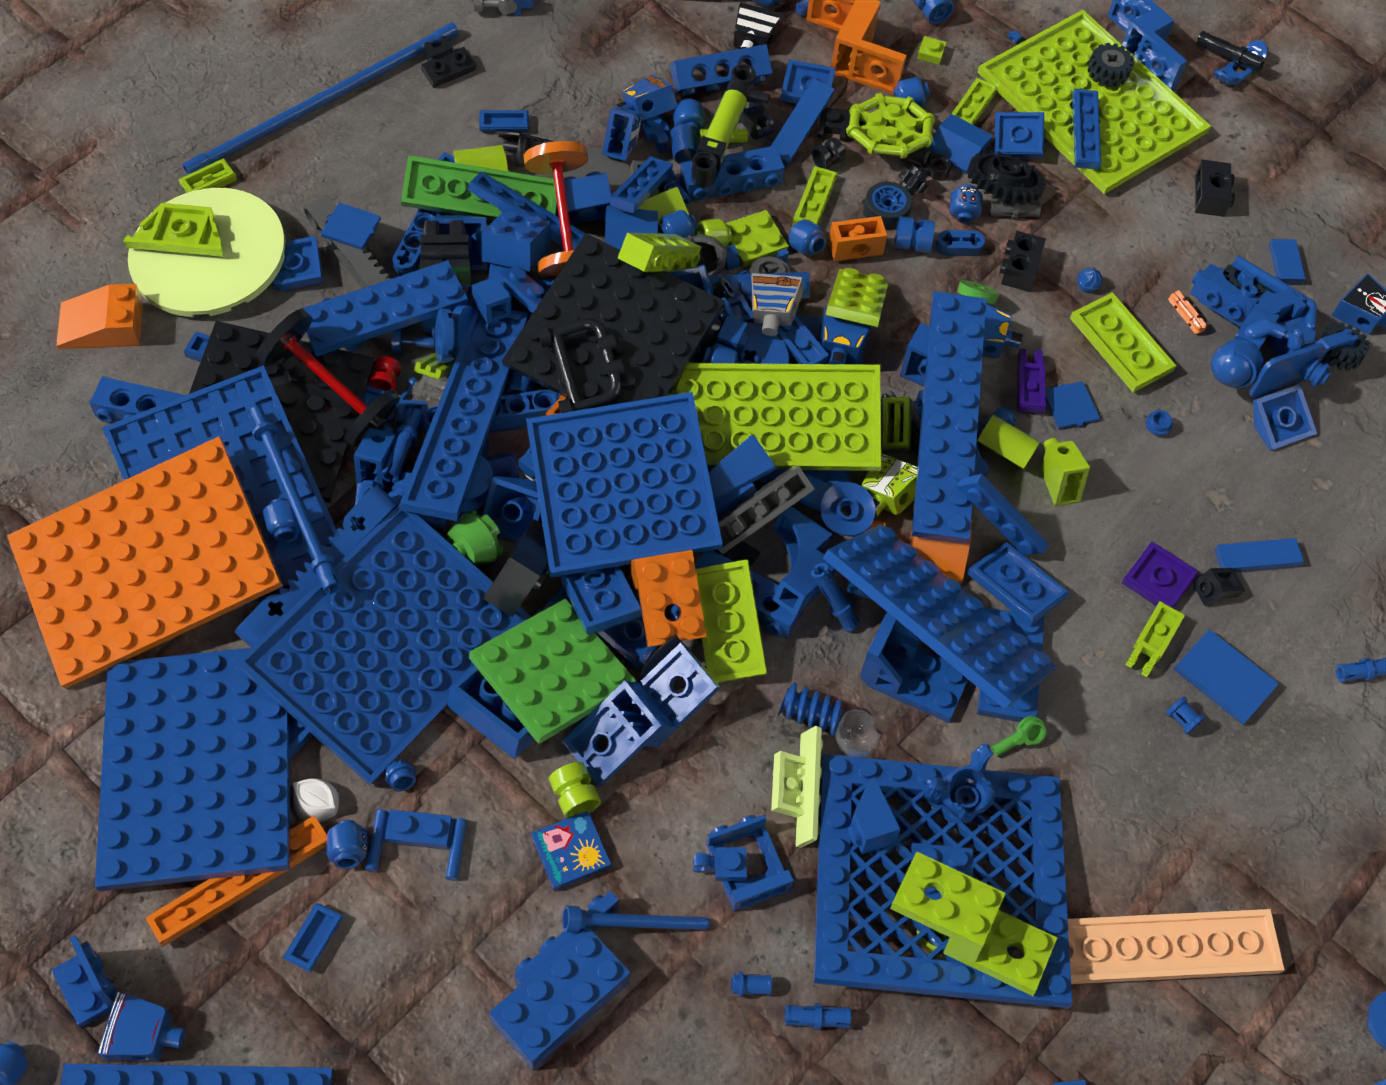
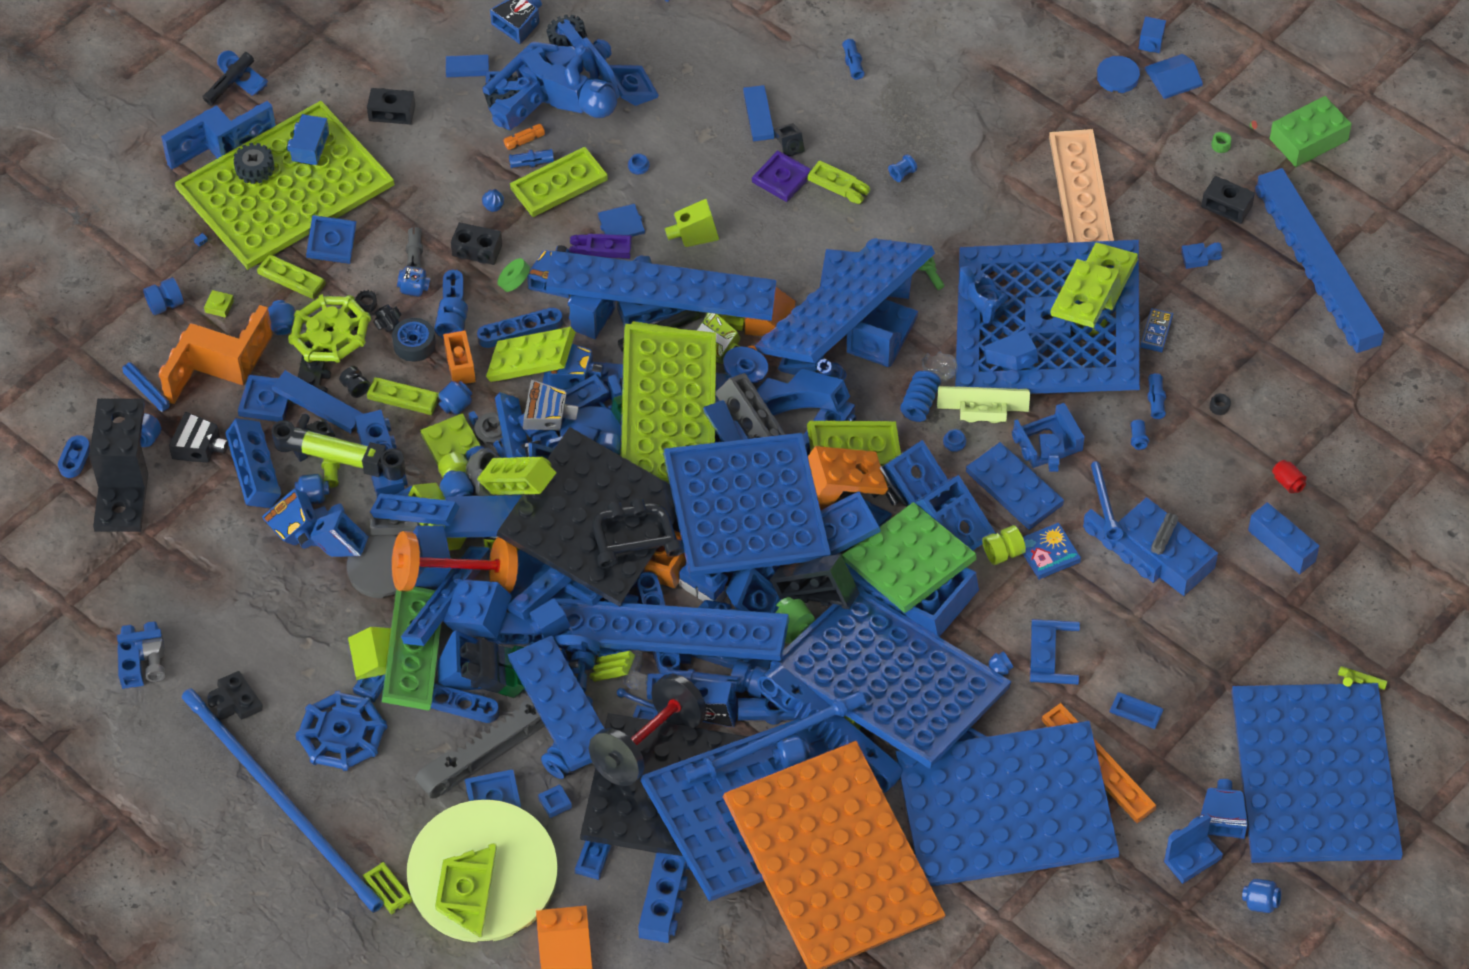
camera: 85 degrees left, 5 degrees down
(277, 312) = (555, 801): none -> blue plate
(315, 798) = (1024, 719): white hat -> none
(347, 844) = (1063, 691): blue head -> none
(350, 226) = (460, 744): blue piece -> none
(385, 373) = (614, 706): red wheel -> none
(400, 126) = (345, 742): none -> blue plate
(444, 335) = (595, 648): blue tile -> none
(504, 120) = (311, 643): blue tile -> none
(519, 147) = (342, 623): black shield -> none
(558, 984) = (1164, 533): none -> dark grey axle
(674, 817) = (1014, 486): none -> blue plate
(683, 143) = (345, 492): blue piece -> none
(745, 749) = (954, 440): none -> blue plate
(903, 302) = (518, 324): none -> blue beam
(934, 1029) = (1156, 330): none -> tile
(959, 141) = (339, 279): blue slope -> none
(1002, 515) = (751, 258): blue plate -> none
(1006, 177) = (386, 248): black gear -> none
(1008, 441) = (673, 253): lime brick -> none
(1018, 583) = (798, 262): blue tile -> none
(1086, 129) = (328, 187): blue tile -> none
(1147, 108) = (308, 139): none -> blue brick
(1155, 317) = (531, 158): none -> blue pin
(1226, 676) = (865, 143): blue tile -> none

